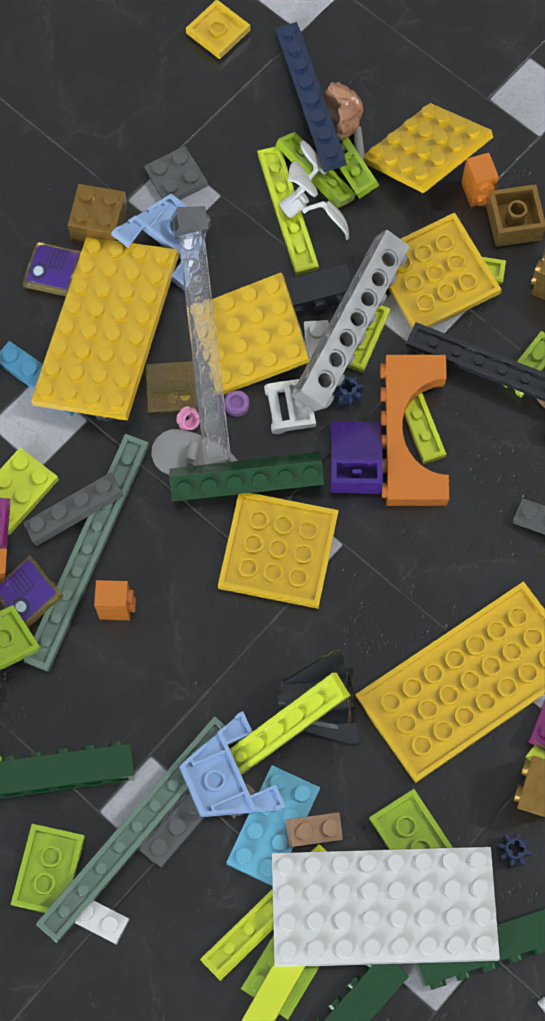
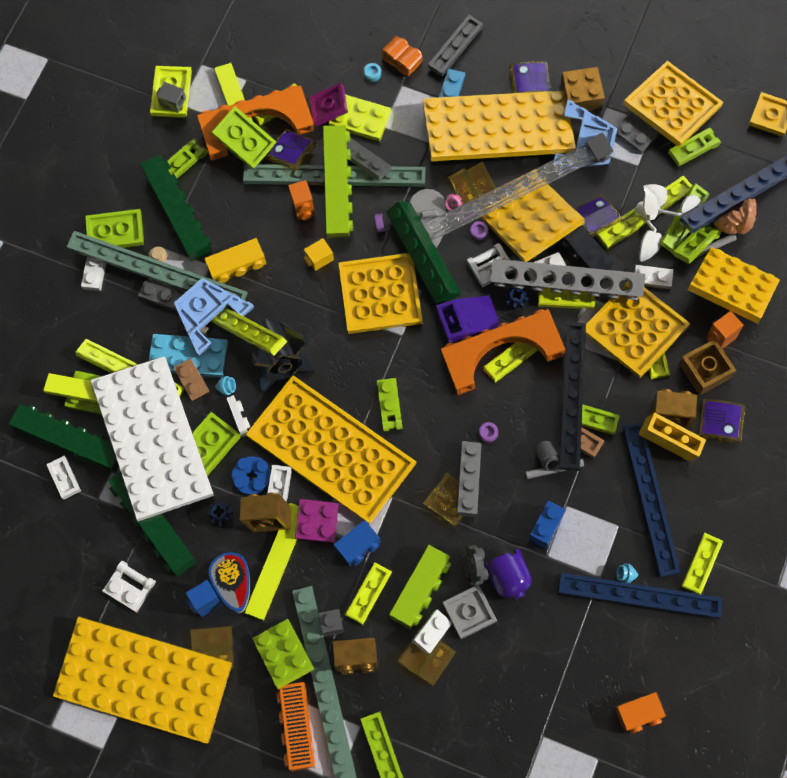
camera: 75 degrees right, 0 degrees up
(104, 546) = (336, 181): none -> lime brick
(110, 820) = (158, 253): none -> tan plate
(161, 124) = (673, 103): none -> yellow plate
(163, 717) = (236, 261): none -> yellow brick
(180, 516) = (379, 221): none -> medium lavender tile
(195, 607) = (318, 254): none -> yellow brick
(225, 125) = (694, 147): none -> lime plate
(271, 258) = (598, 215): none -> slope
(336, 787) = (226, 385): none -> medium azure plate
(376, 224) = (656, 277): none -> white plate
(397, 783) = (236, 408): none -> white plate
(433, 589) = (389, 403): none -> lime plate
(458, 799) = (246, 466): none -> blue plate
(498, 761) = (280, 480): none -> white plate
(509, 486) = (488, 432): none -> medium lavender tile

